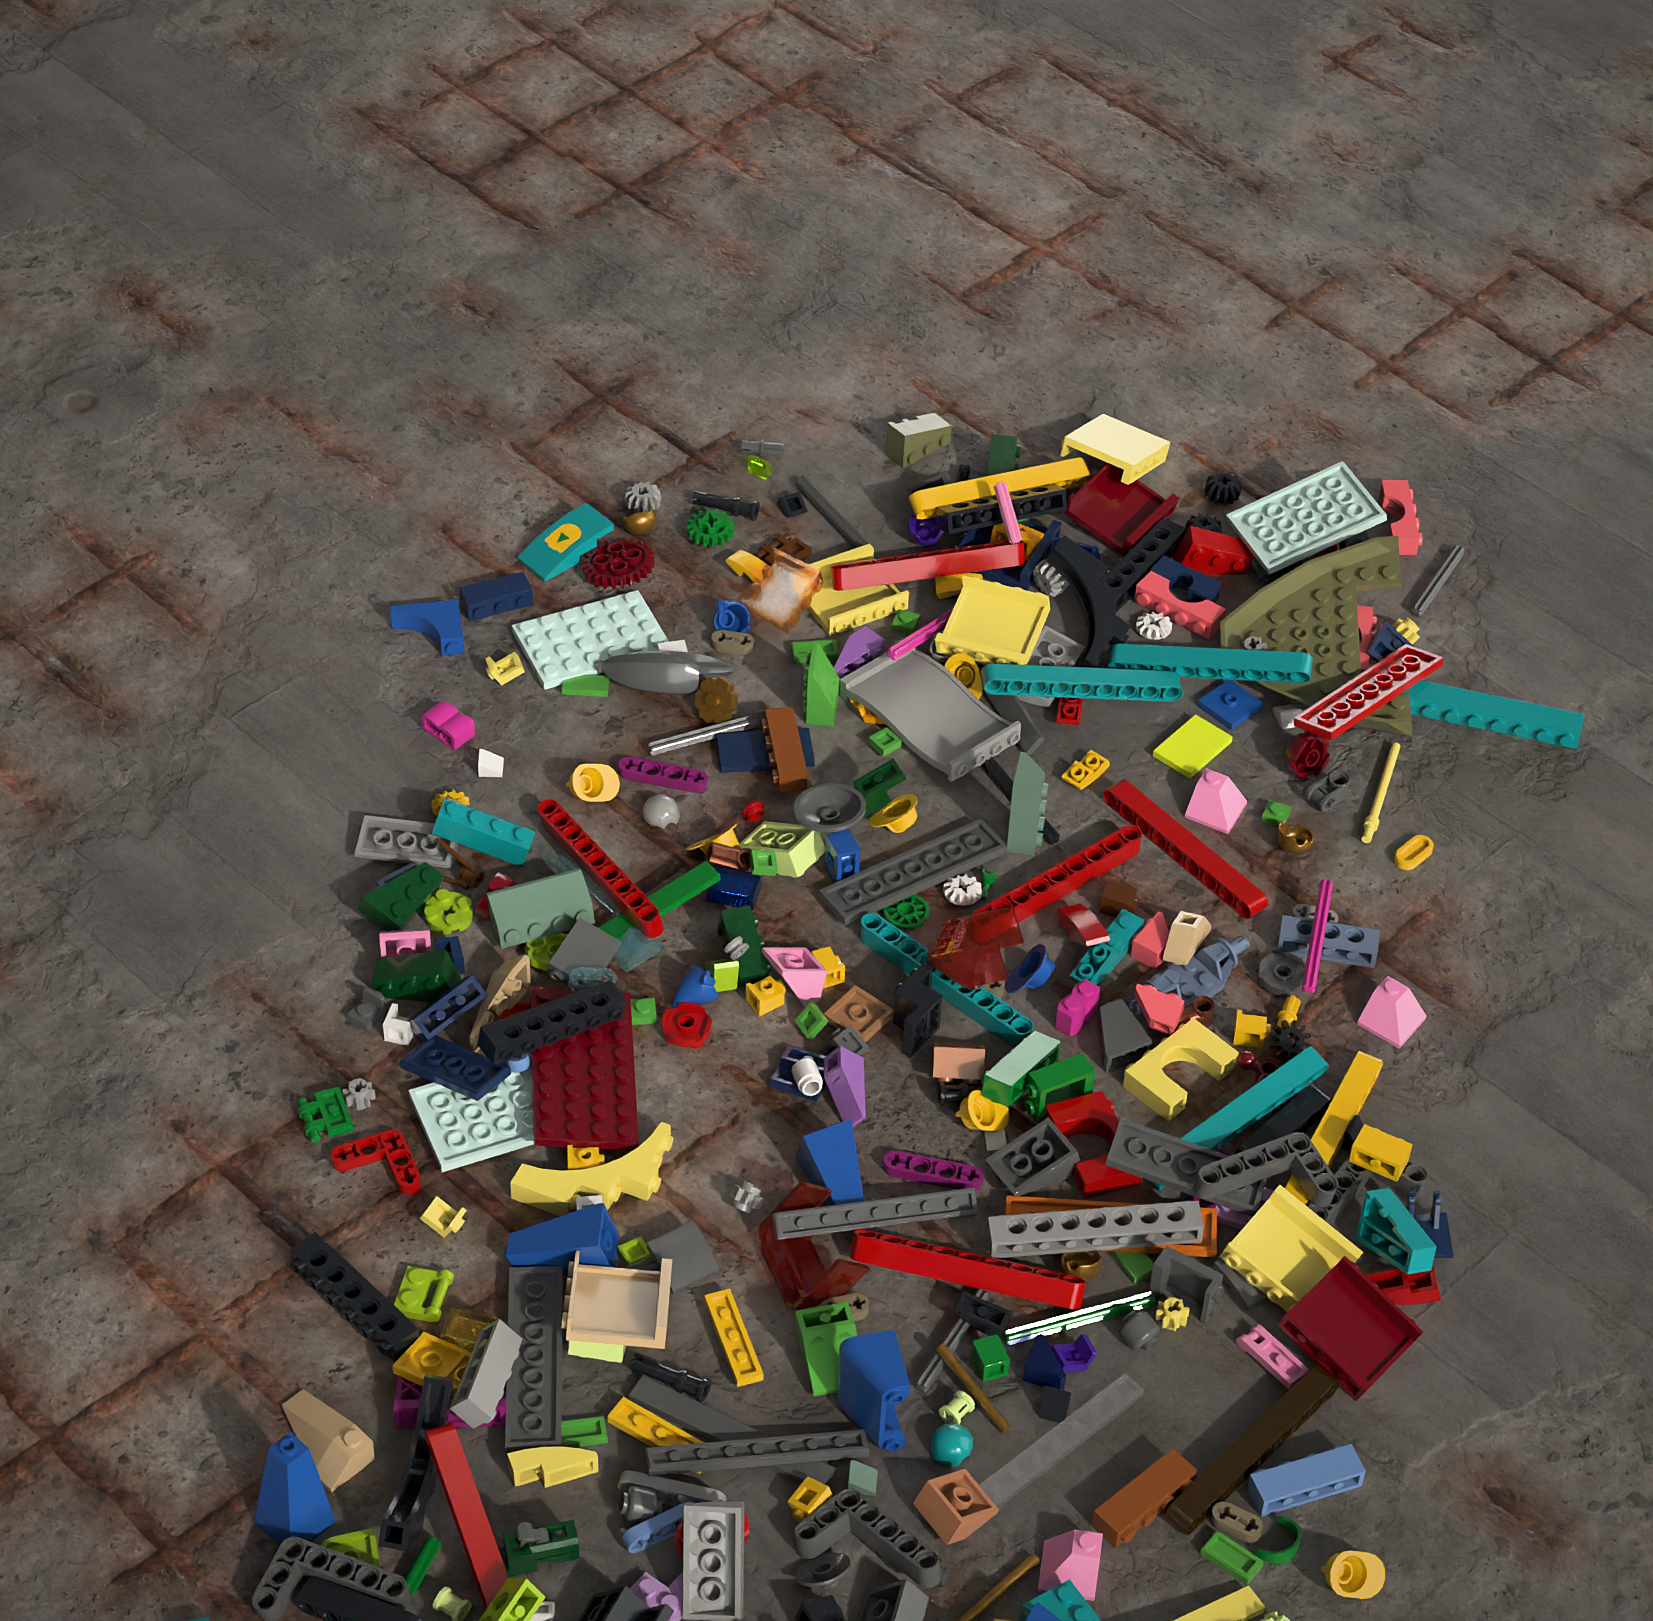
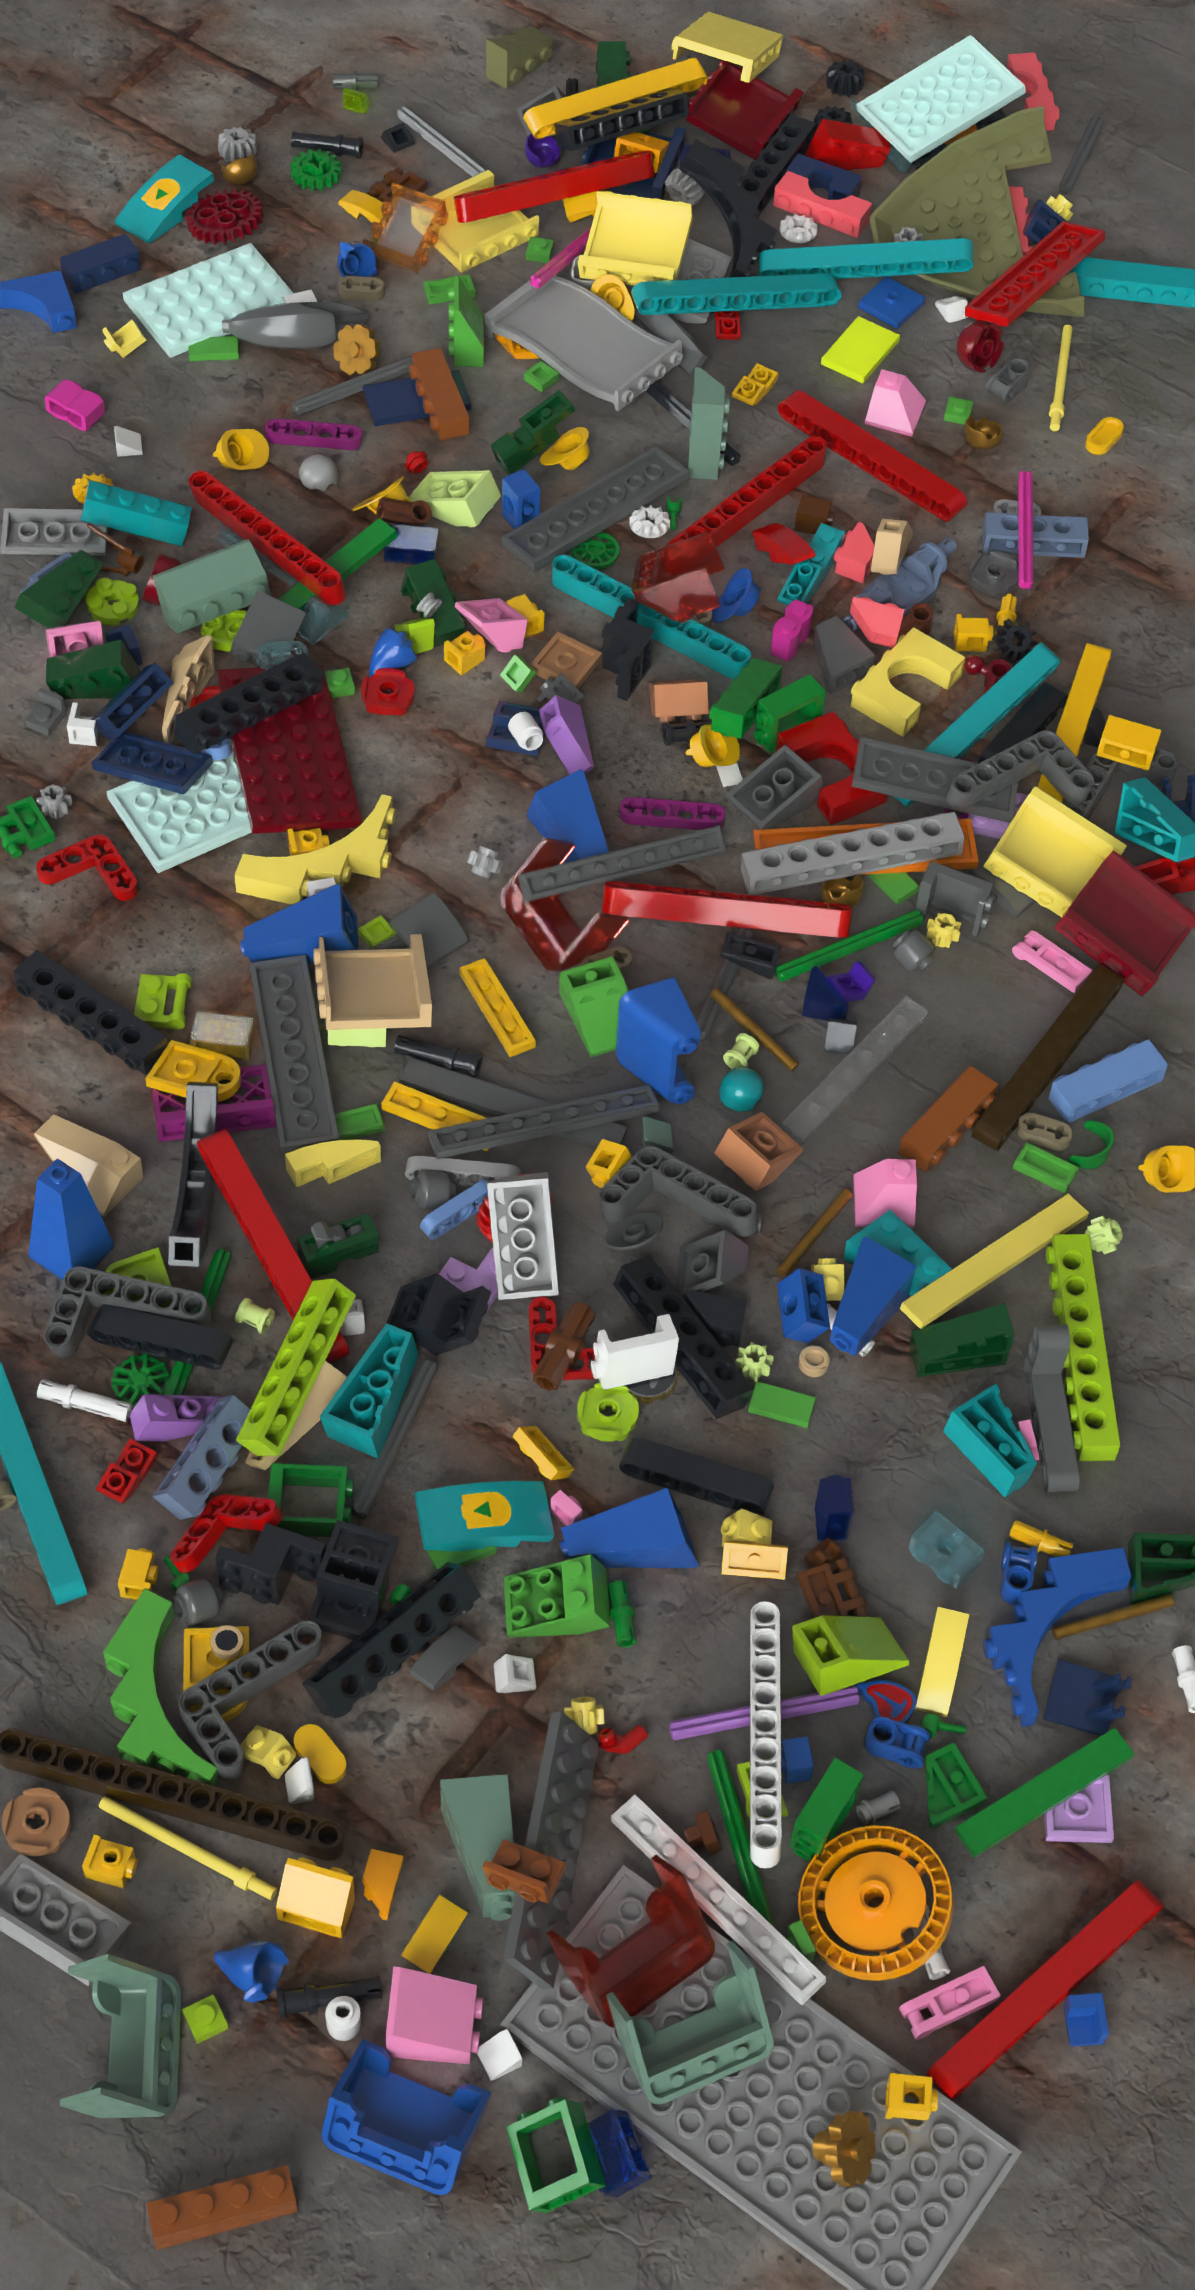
camera: 10 degrees left, 10 degrees up
(443, 1217) = (168, 919): light yellow bracket -> none
(486, 1374) = (249, 1075): light grey brick -> none
(763, 862) = (439, 514): bright green plate -> none
(829, 808) = (500, 448): dark grey dish -> none
(859, 650) = (498, 283): medium lavender slope -> none
(990, 1358) = (766, 997): green panel -> none
(1007, 512) = (631, 121): bright pink axle -> none
(1392, 1013) = (1112, 601): bright pink slope -> none

